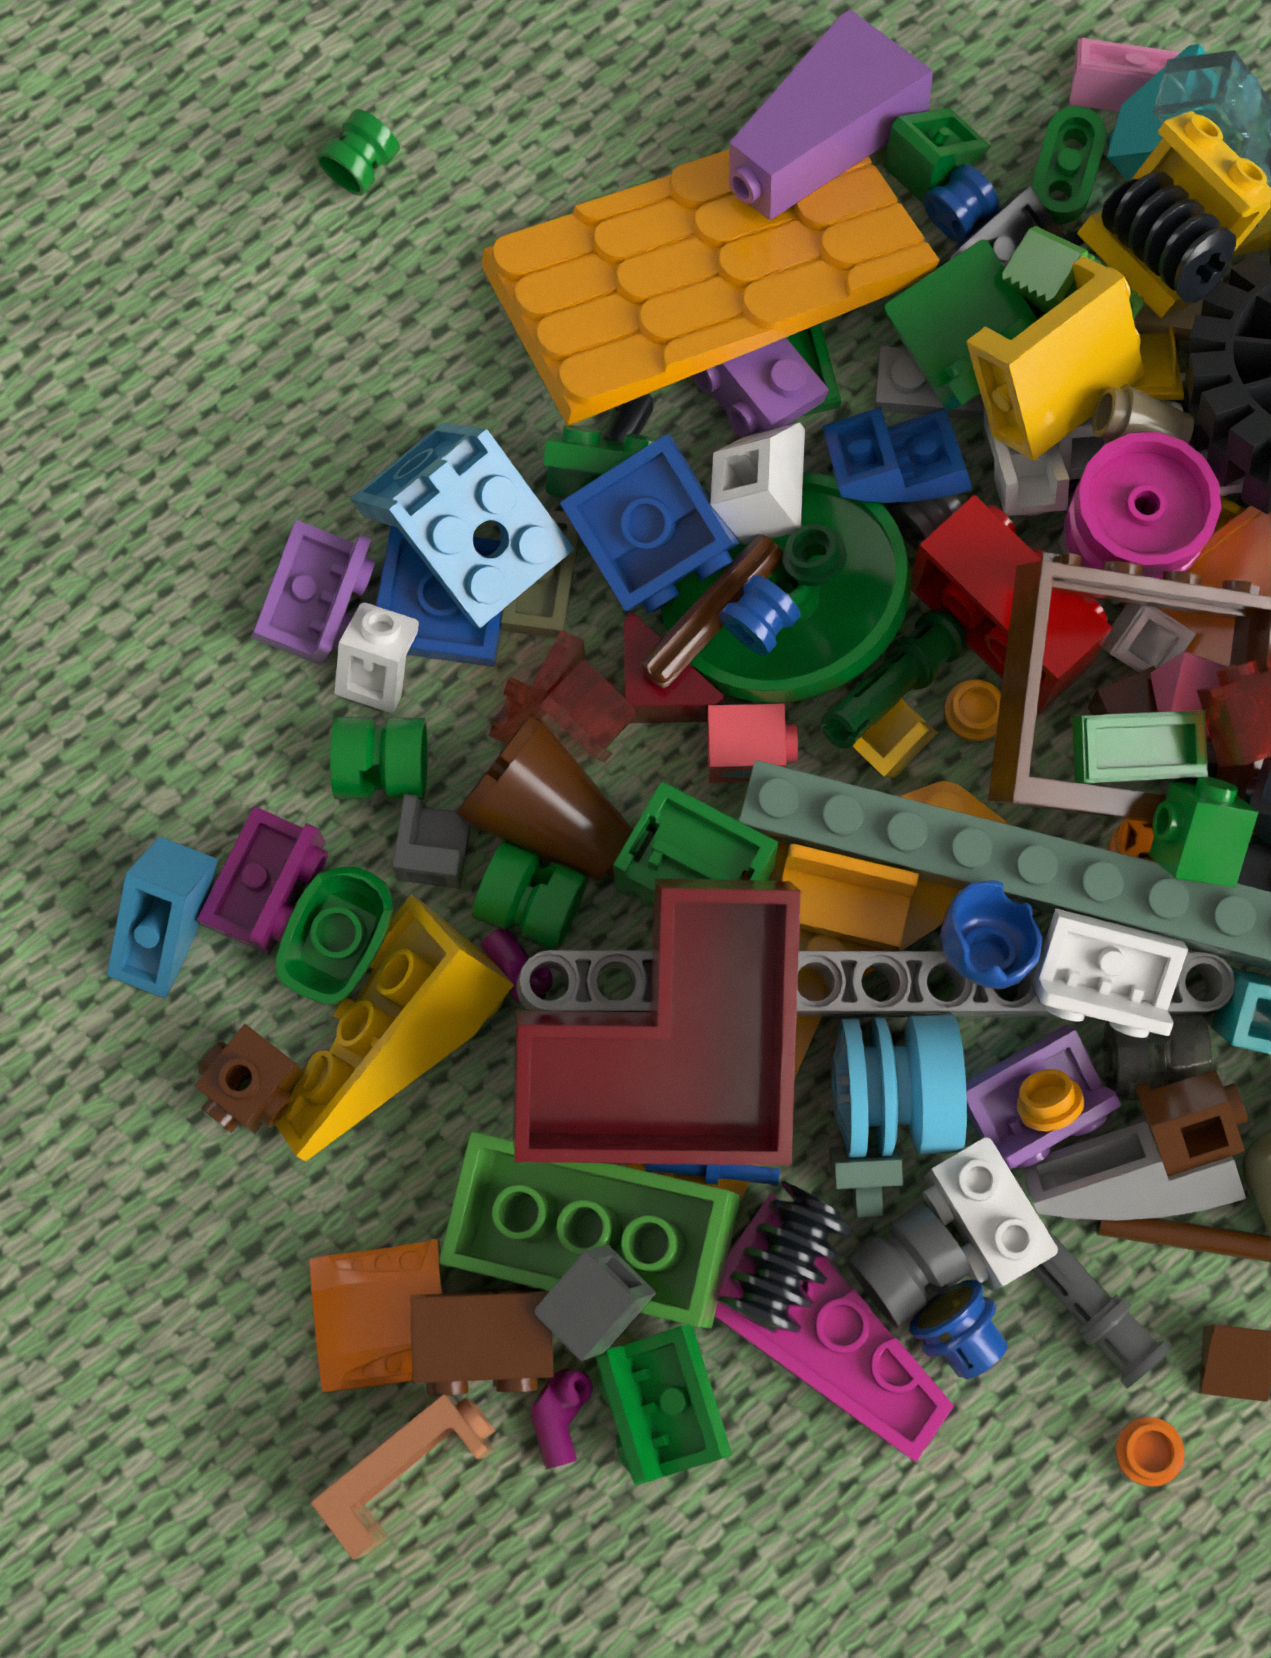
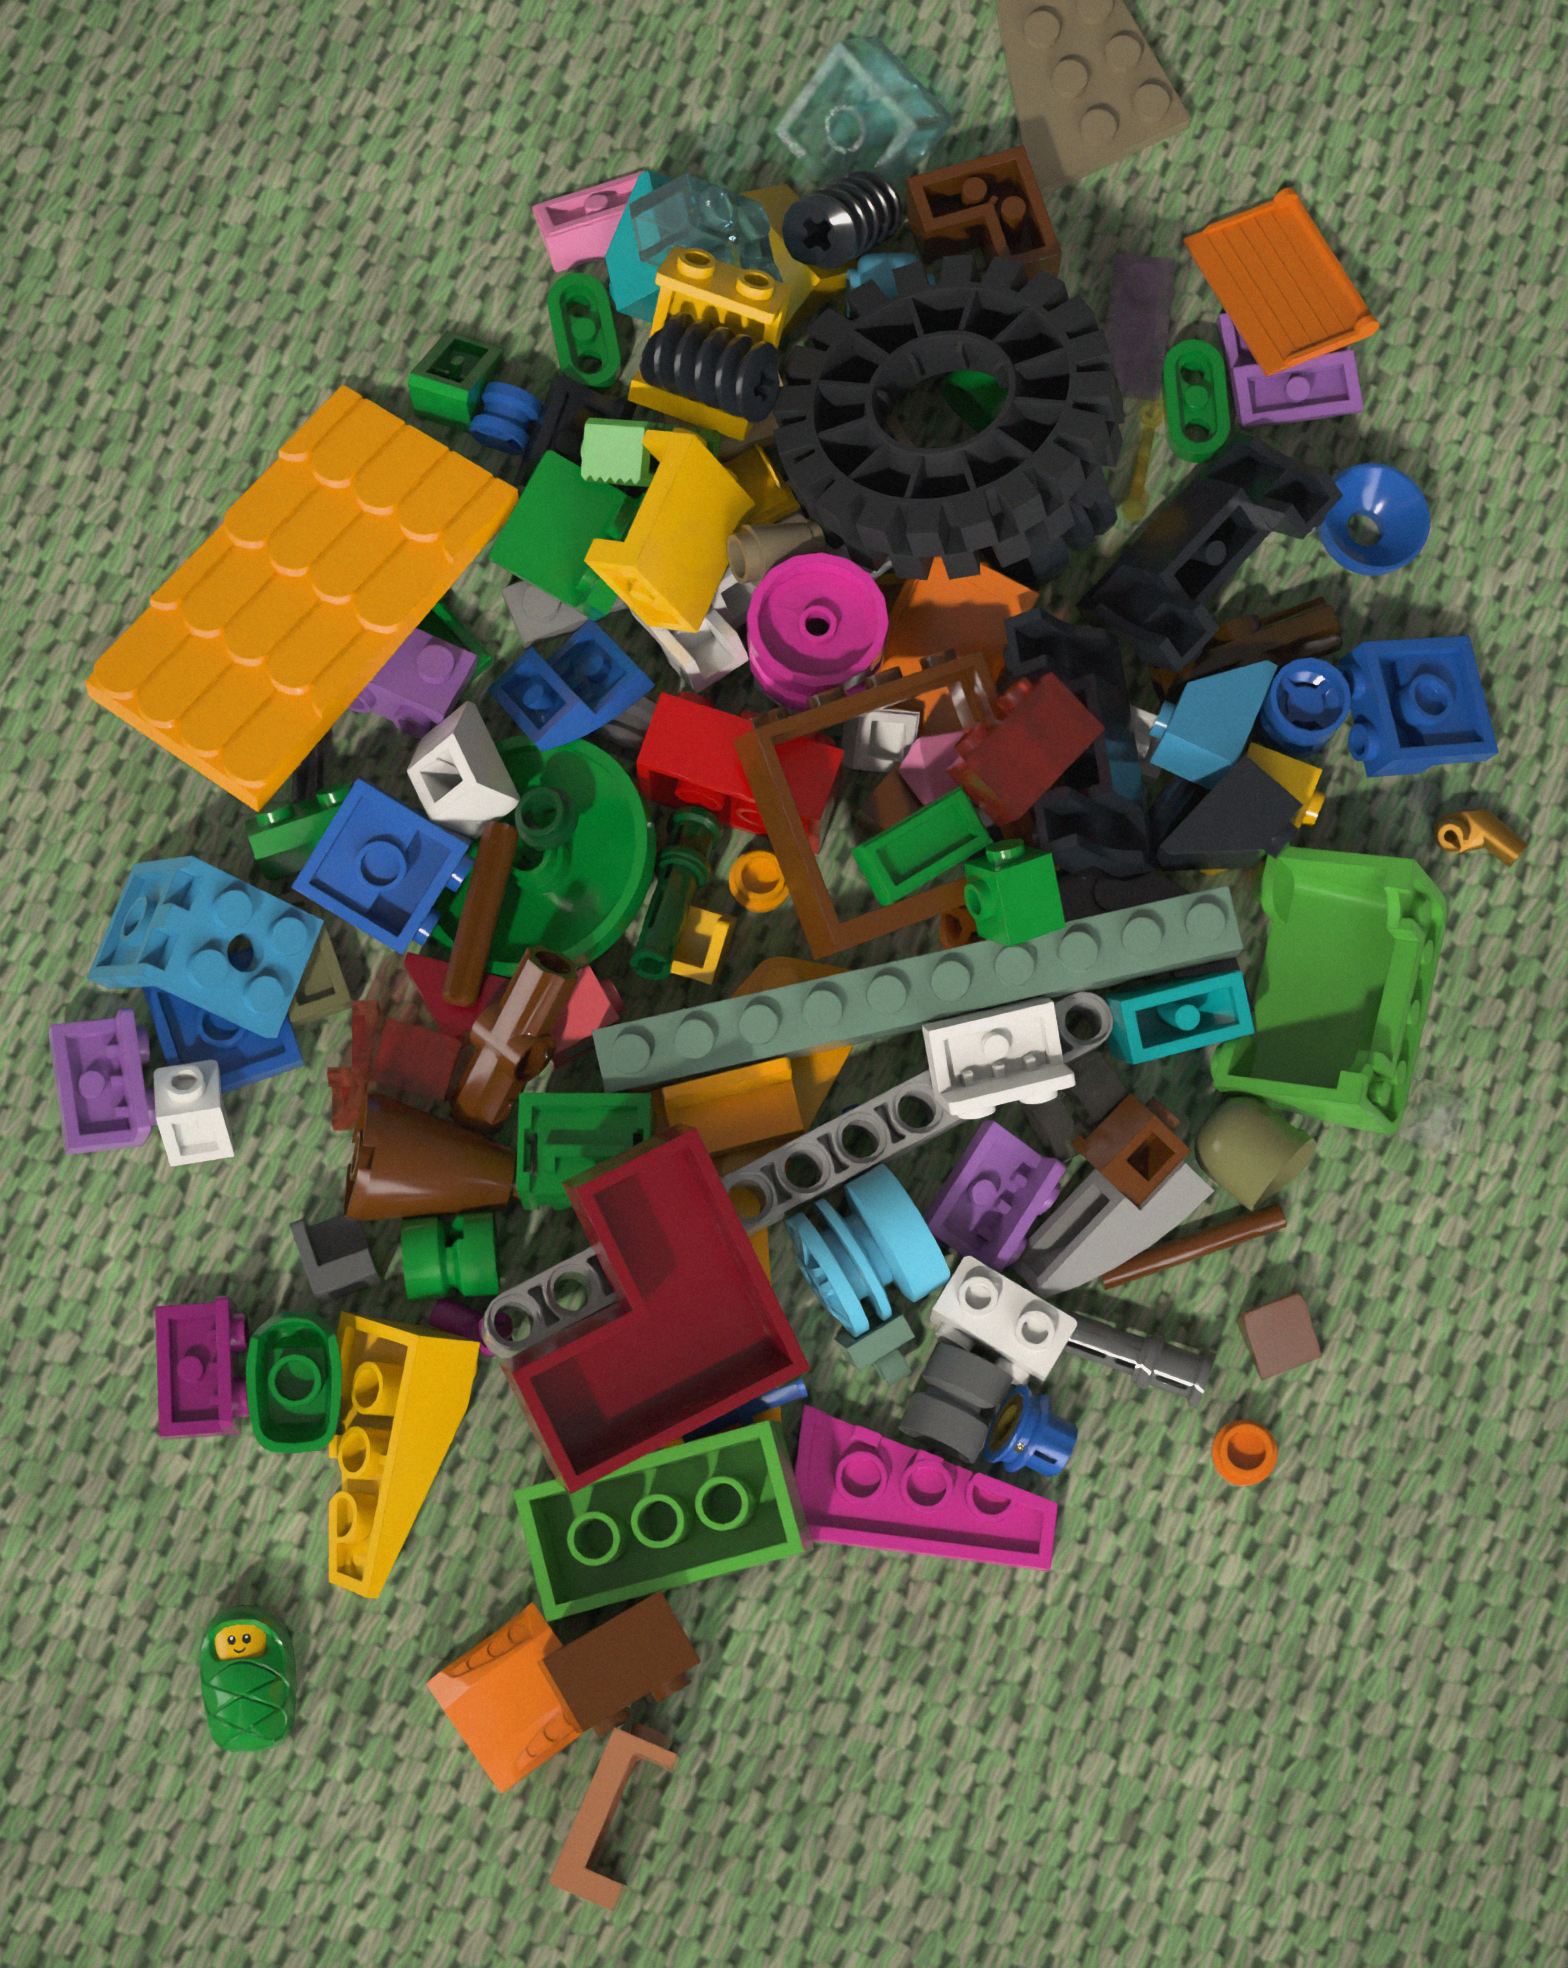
camera: 30 degrees left, 0 degrees up
(159, 915) = (123, 1450): dark azure slope -> none
(159, 1171) = (248, 1679): none -> green piece
(244, 1058) = (272, 1535): reddish brown brick -> none
(378, 757) = (246, 1203): green wheel -> none
(554, 1412) = (715, 1697): magenta arm -> none
(594, 1302) = (702, 1578): dark grey panel -> none
(662, 1405) = (806, 1639): green bracket -> none
(683, 734) = (513, 1040): none -> reddish brown piece
(759, 615) = (526, 897): blue wheel -> none
(786, 1261) = (849, 1456): black piece -> none
(826, 115) = (342, 400): medium lavender slope -> none
(990, 936) = (878, 1079): blue hair -> none
(1049, 1100) = (1003, 1195): light orange plate -> none

